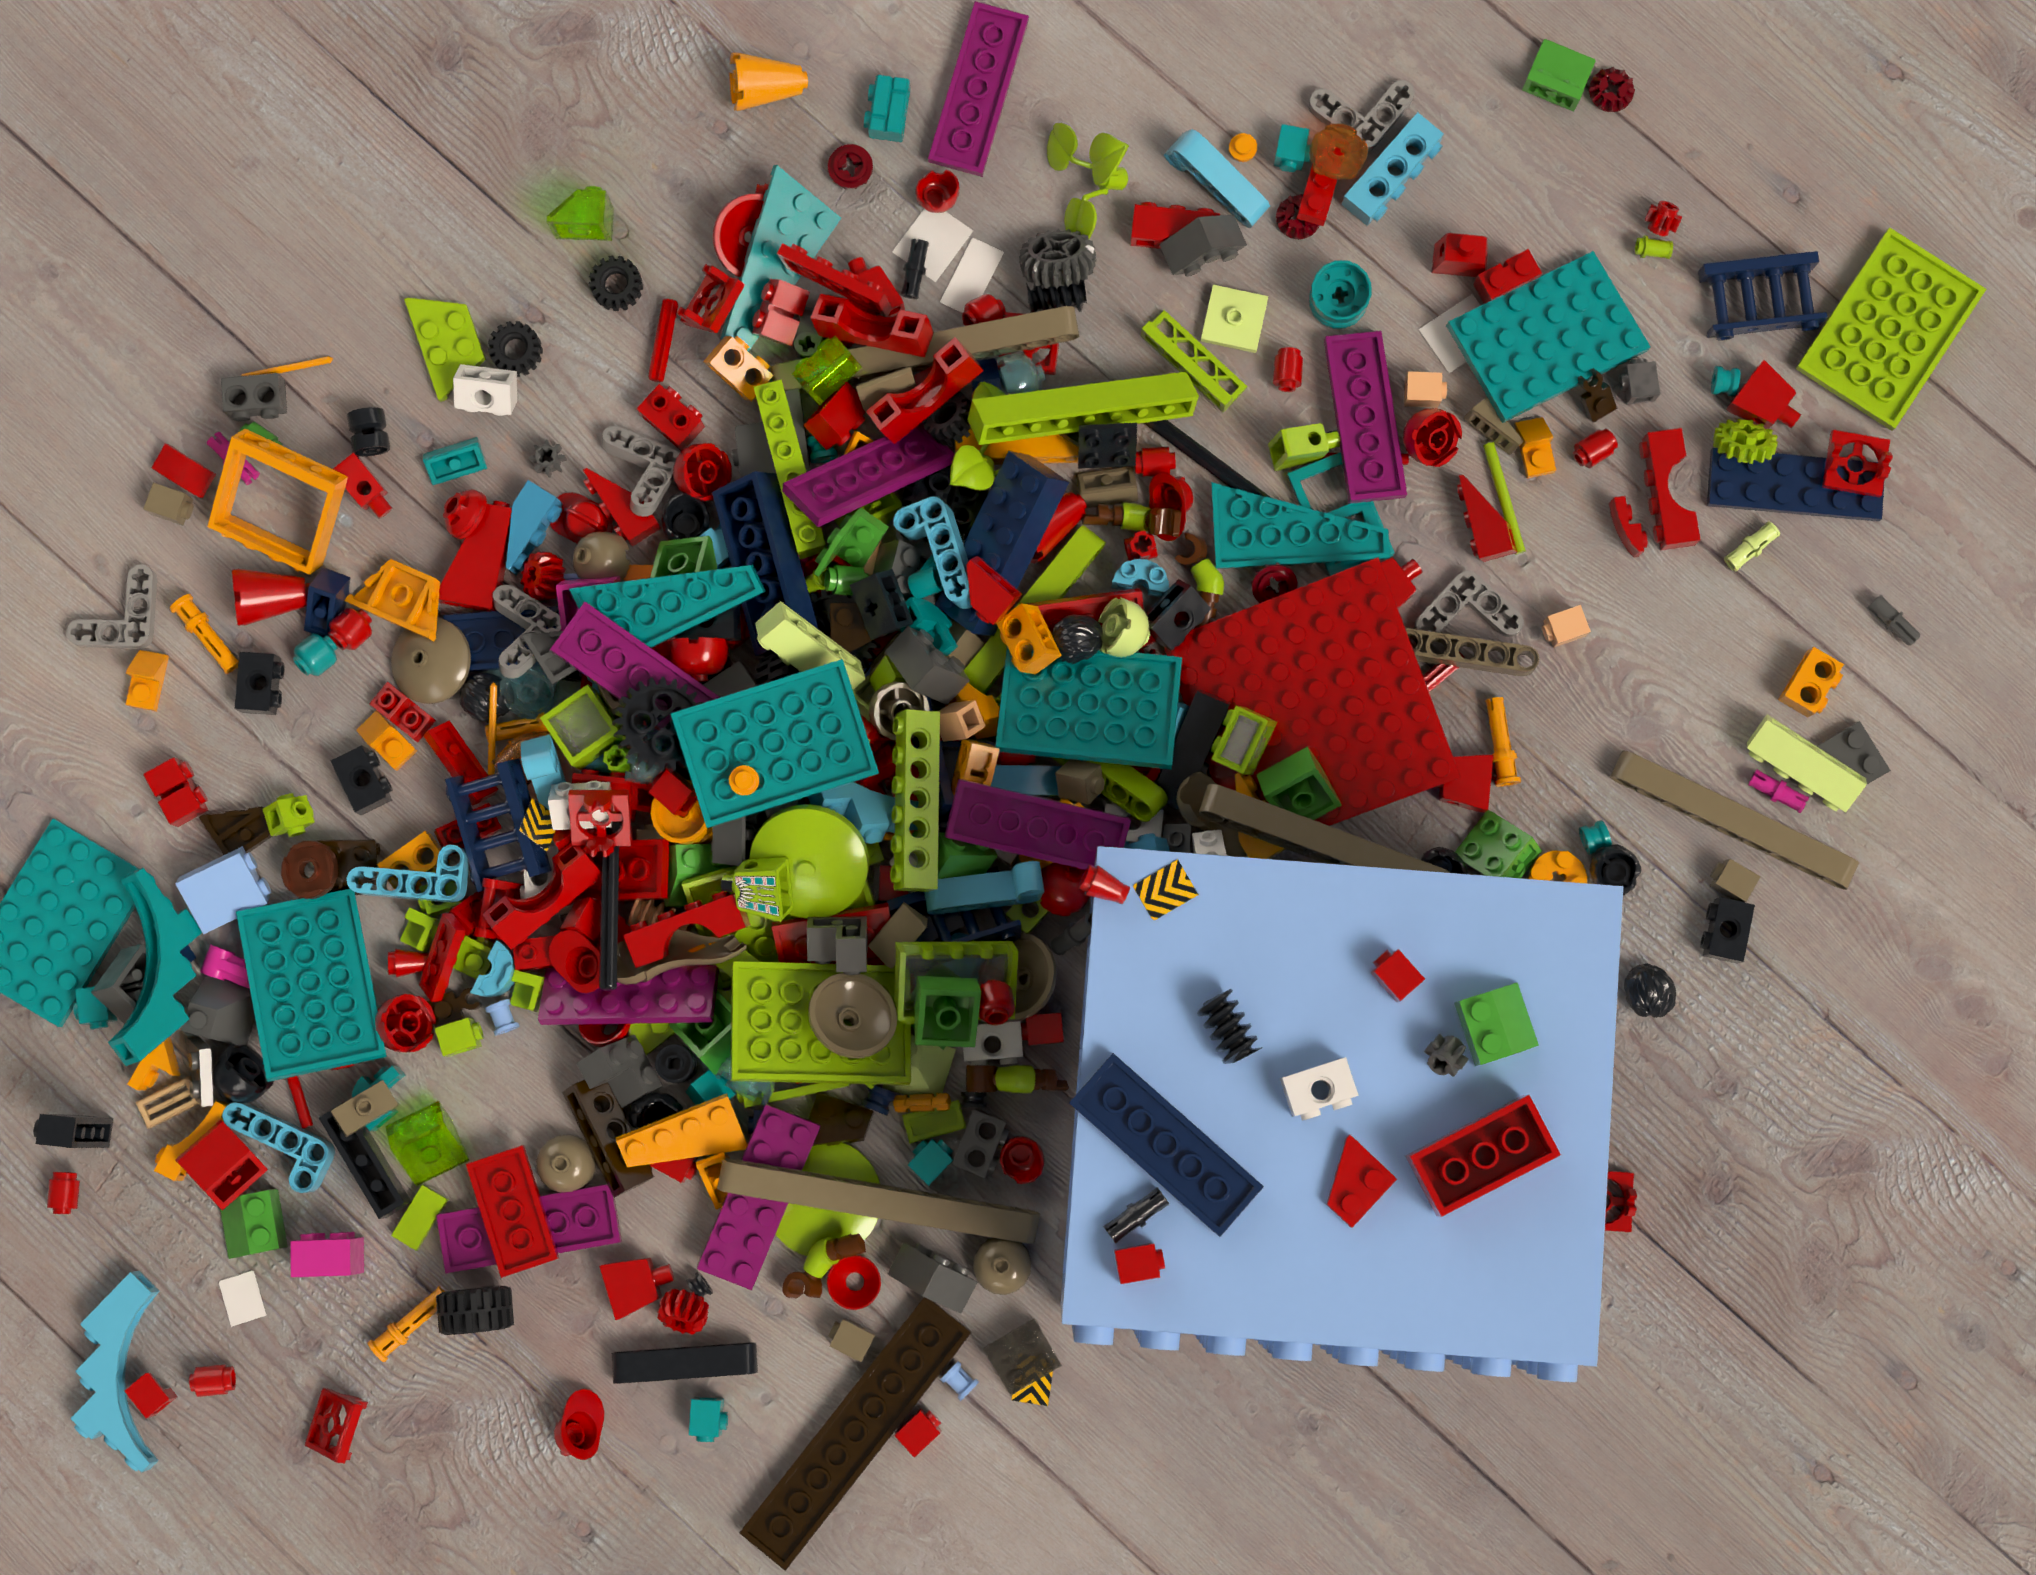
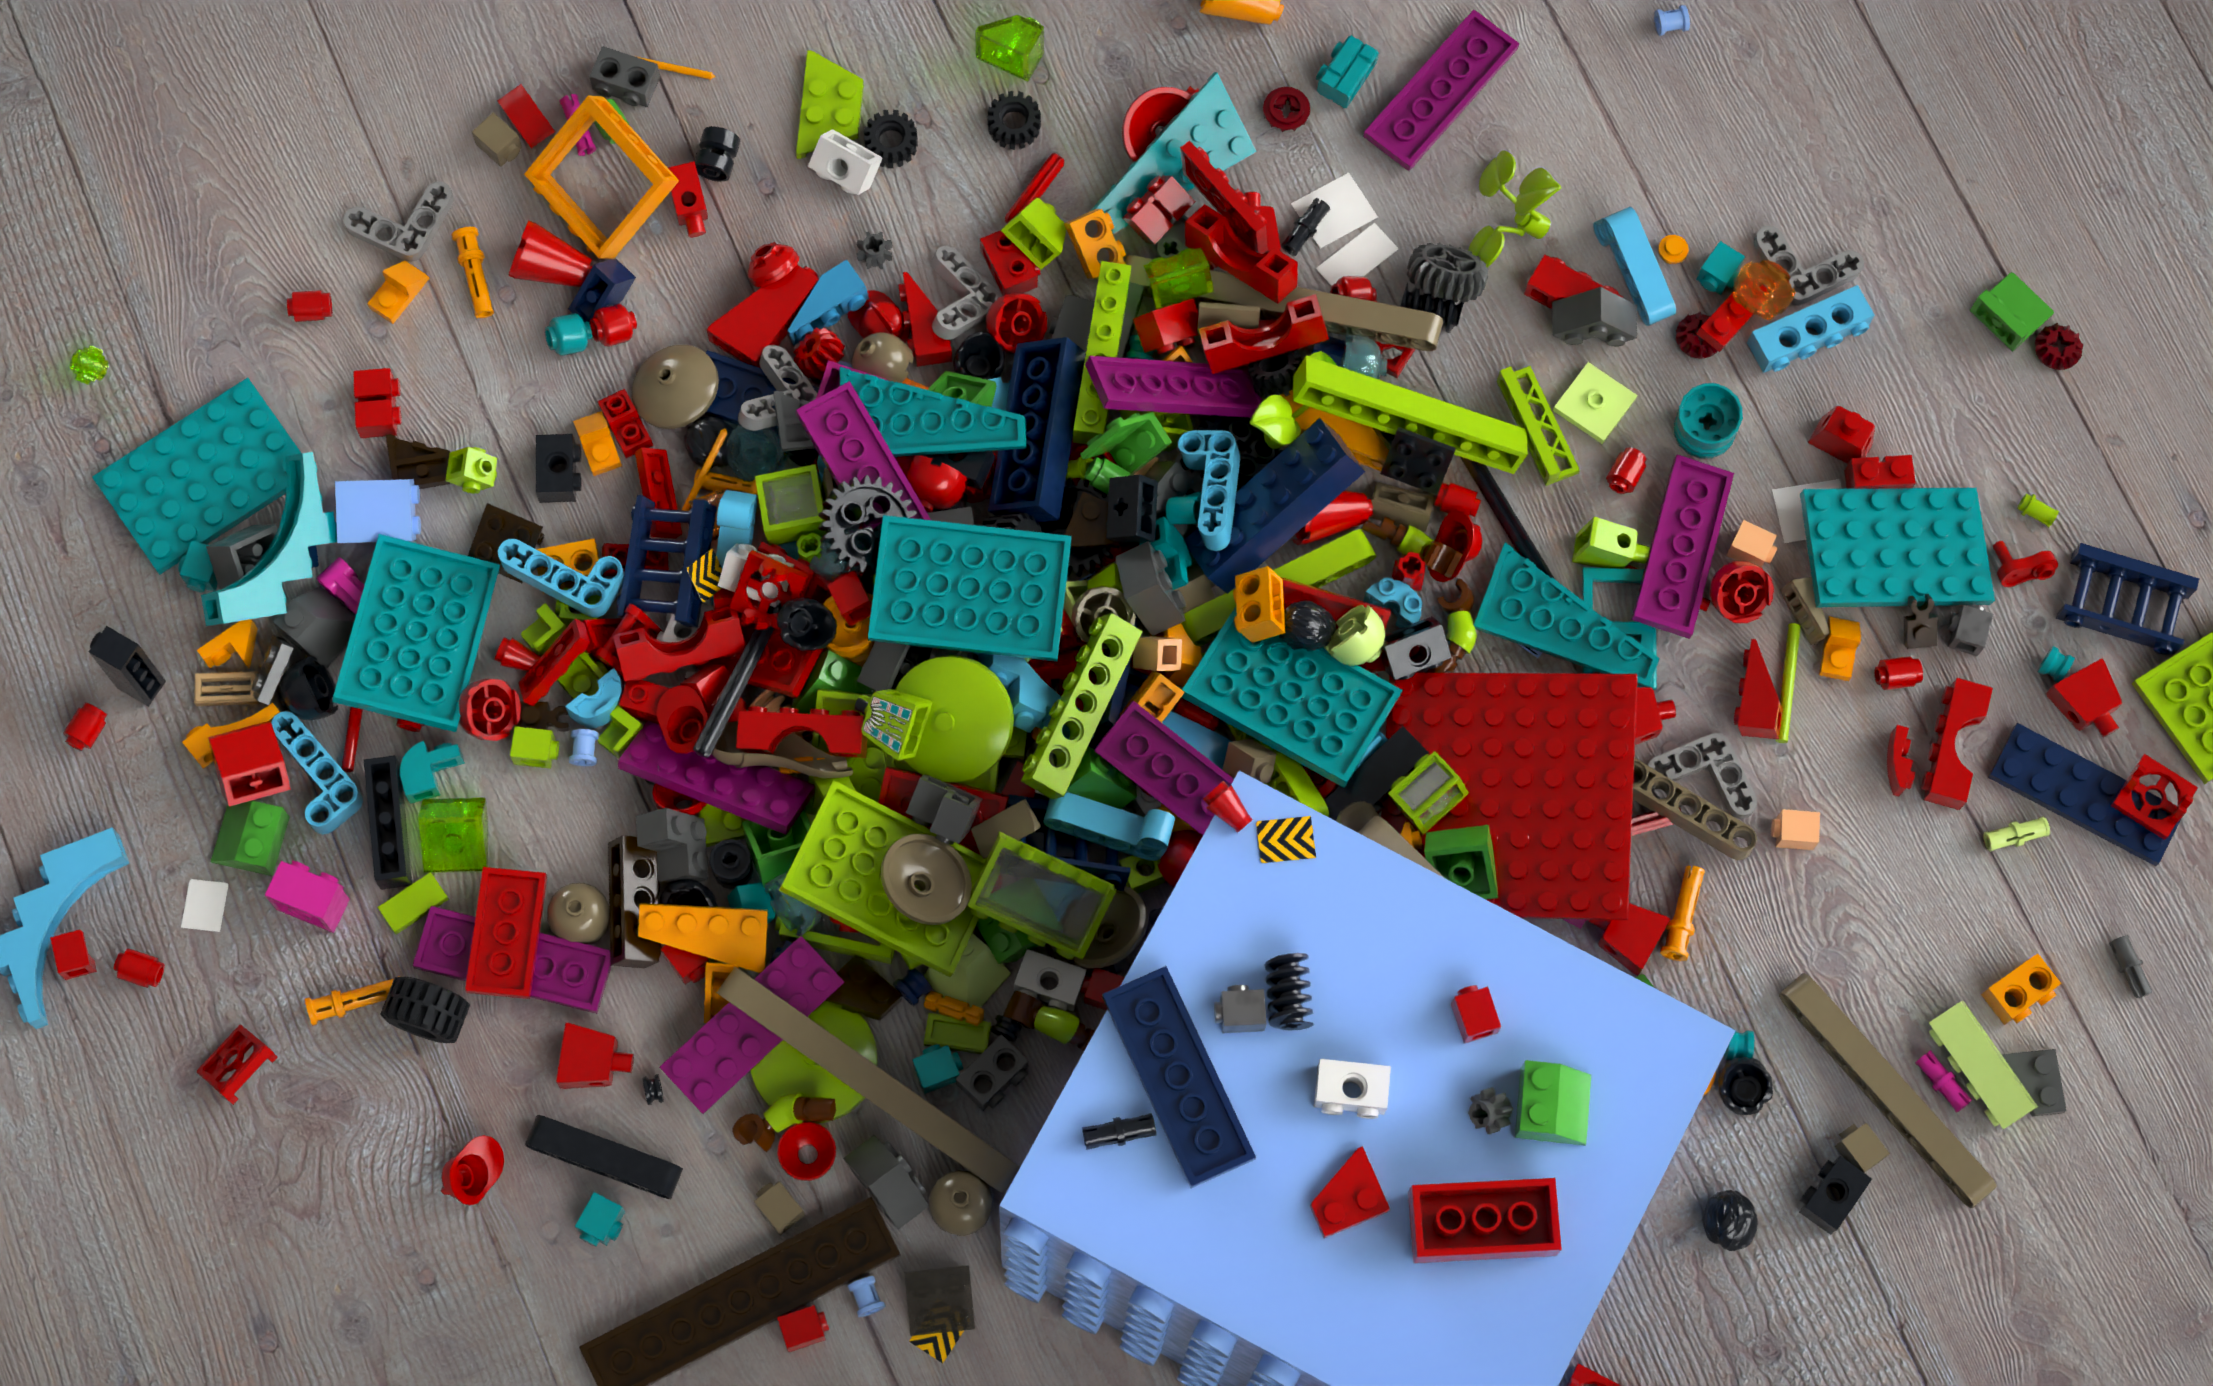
camera: 15 degrees right, 10 degrees down
(76, 729) = (309, 306): none -> red brick
(250, 669) = (502, 321): black brick -> none
(324, 869) = (478, 537): copper tile -> none
(364, 1108) = (411, 769): dark tan plate -> none
(402, 598) = (675, 316): light orange wing -> none
(454, 461) = (784, 217): teal slope -> none
(646, 834) = (806, 624): none -> black hair
(683, 380) = (1037, 232): none -> lime torso
(683, 1311) = (626, 1104): red gear -> none
(712, 319) = (1118, 169): red piece -> none
(744, 780) = (924, 607): light orange plate -> none
(802, 643) = (1037, 509): yellowish green brick -> none
(937, 191) = (1359, 165): red hair -> none
(946, 1011) = (1019, 917): bright green slope -> none
(989, 591) = (1241, 541): red slope -> none
(996, 1002) = (1070, 931): red head -> none
(1022, 1159) = (1027, 1106): red hair -> none
(1139, 1263) = (1100, 1176): red brick -> none
(1194, 1062) = (1241, 1010): none -> flat silver brick
(1262, 580) = (1532, 653): dark red gear -> none
(1655, 314) = (2016, 571): none -> red piece
(1663, 218) = (2058, 485): red gear -> none
(1745, 441) = (2051, 727): lime gear -> none

